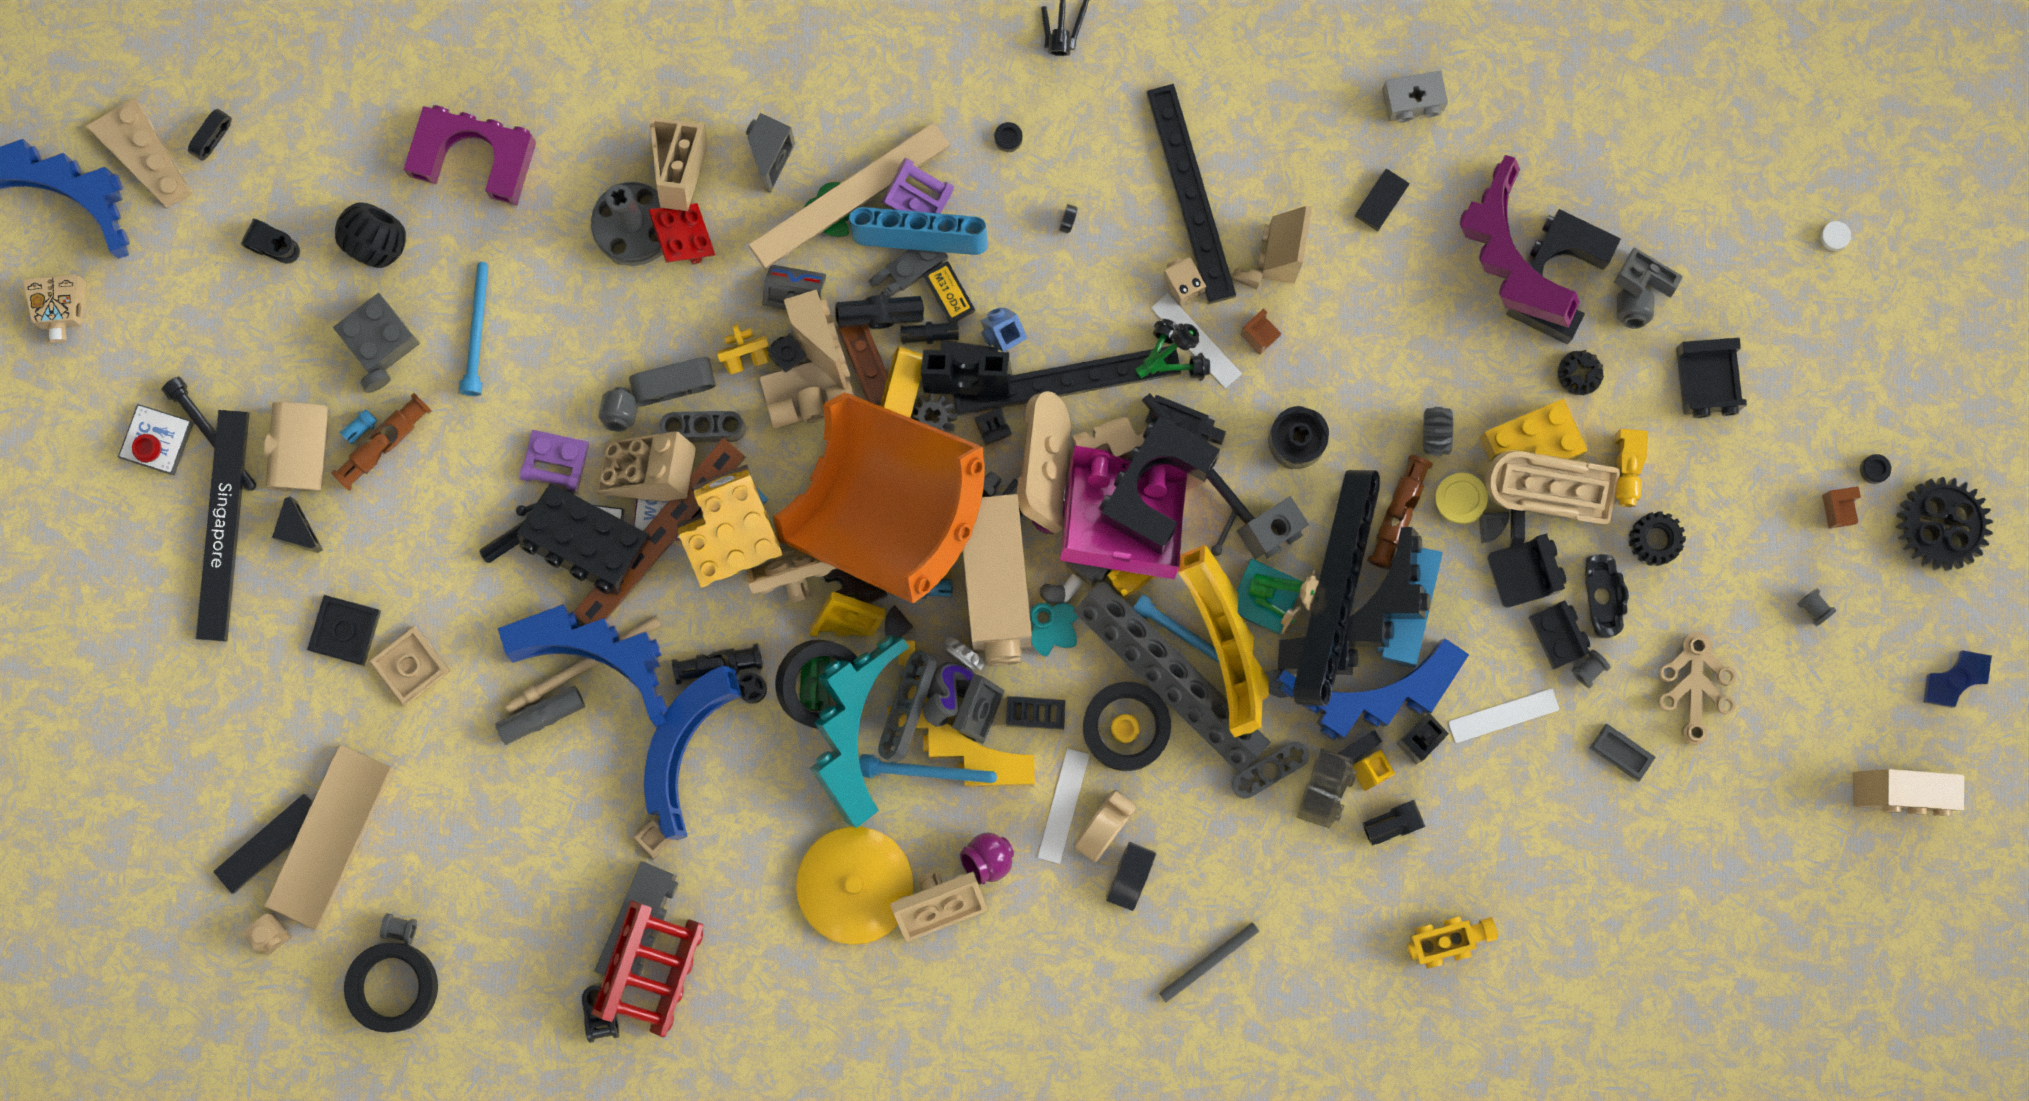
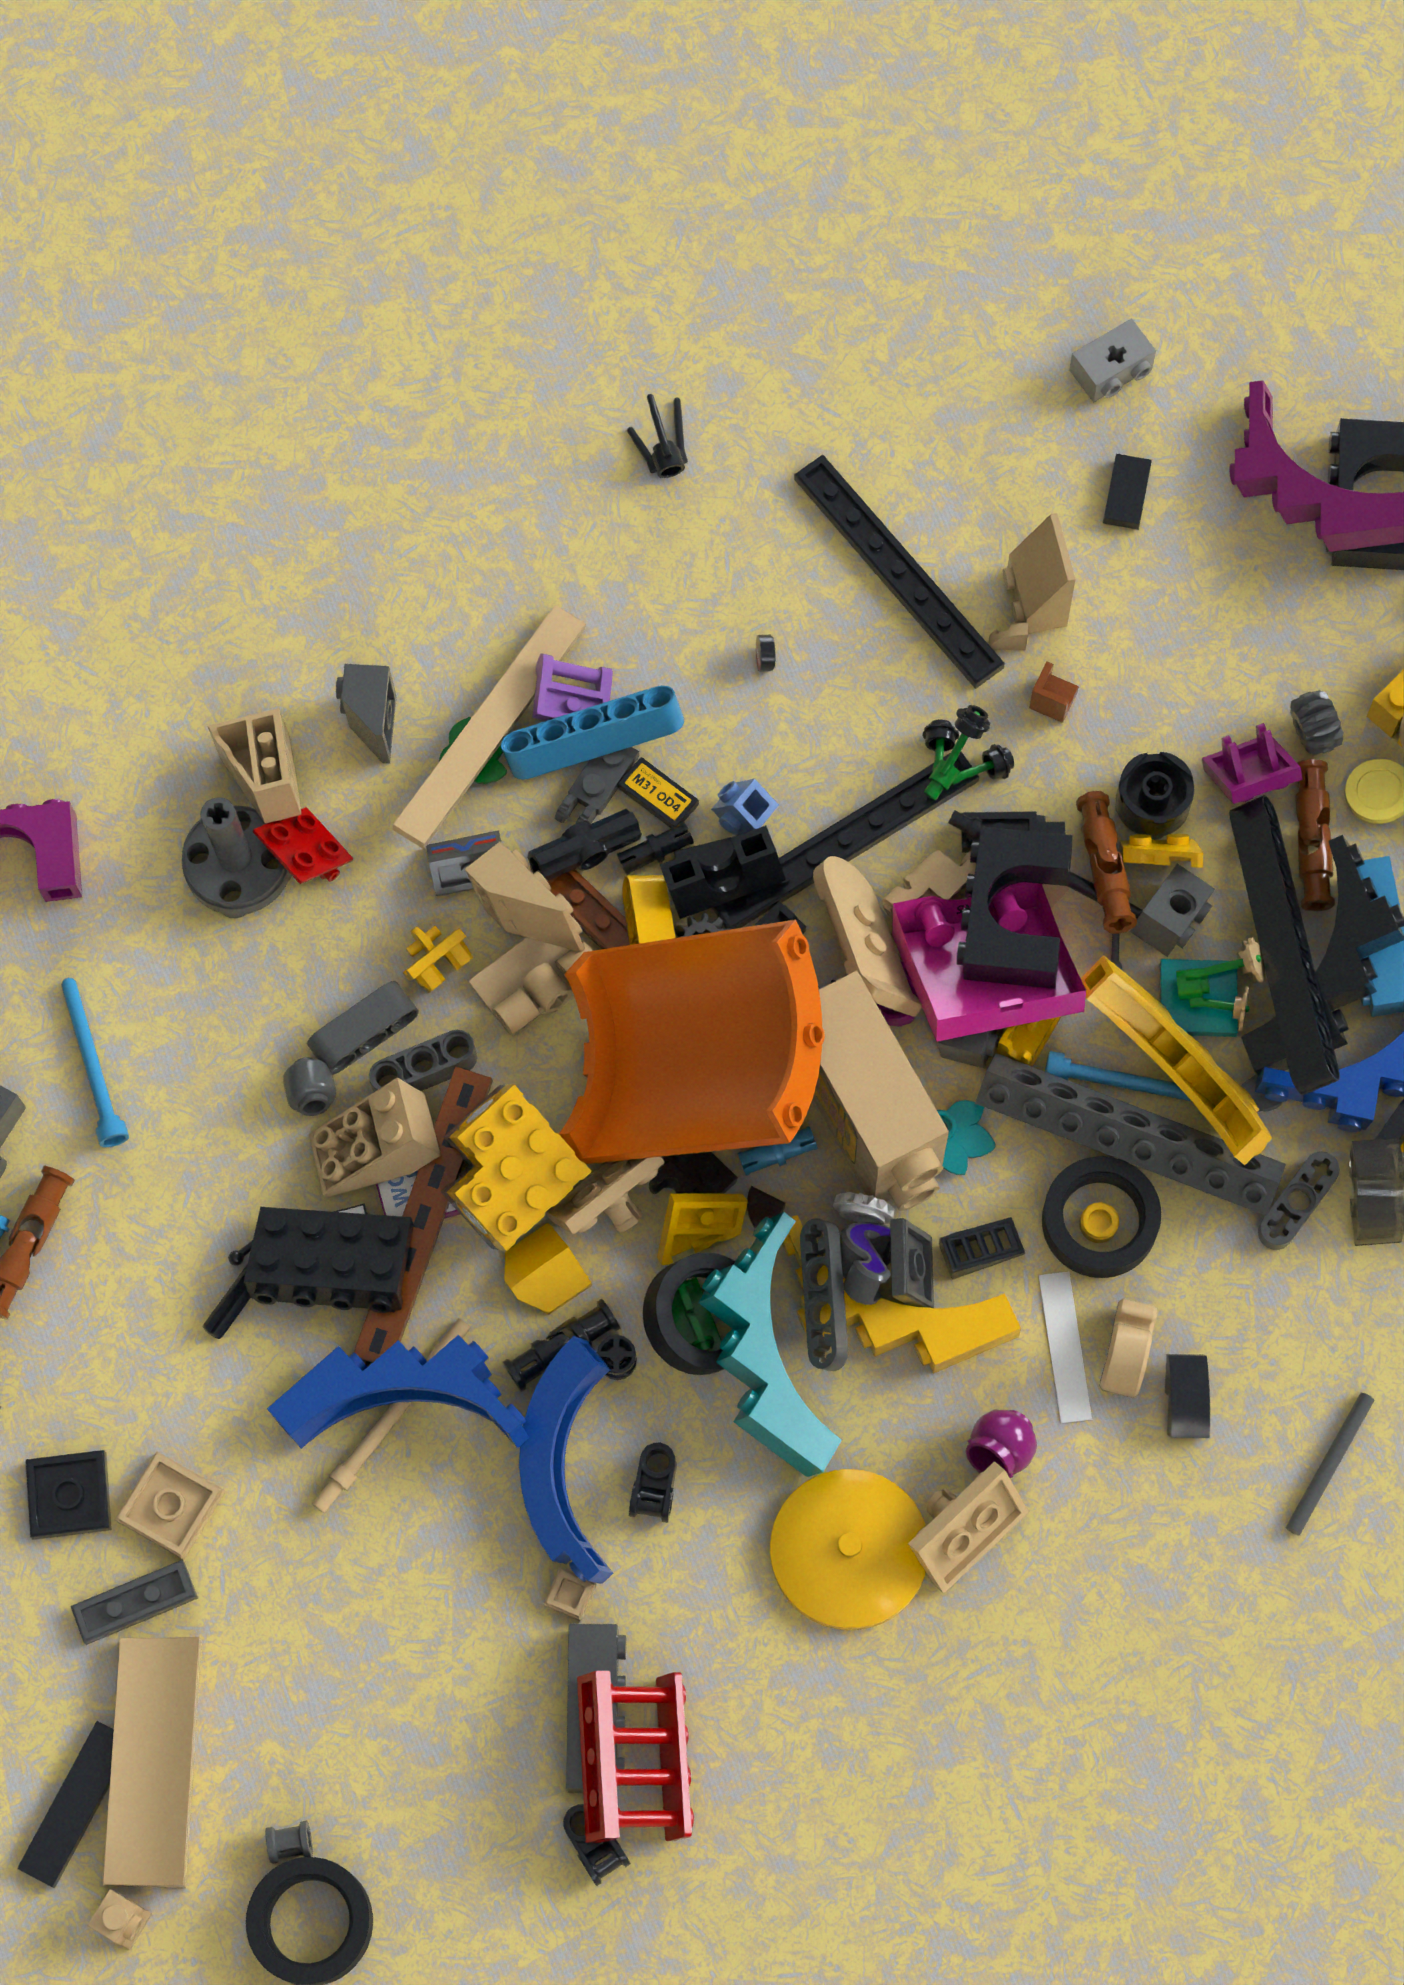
camera: 20 degrees left, 10 degrees down
(359, 722) = (134, 1602): none -> dark grey tile
(539, 715) = (363, 1497): dark grey axle -> none
(556, 451) = (251, 1169): medium lavender plate -> none
(727, 606) = (544, 1271): none -> yellow slope
(739, 788) = (654, 1485): none -> black piece
(786, 353) = (491, 936): black bracket -> none
(873, 766) = (812, 1390): dark azure piece -> none
(1008, 137) = (651, 589): black tile -> none
(1061, 593) = (951, 1090): arm -> none
(1184, 280) = (935, 669): tan brick -> none
(1220, 365) = (1025, 754): white sticker -> none
(1244, 456) = (1100, 841): none -> dark orange piece
(1283, 480) = (1177, 847): none -> yellow wing
(1376, 446) = (1251, 767): none -> magenta plate

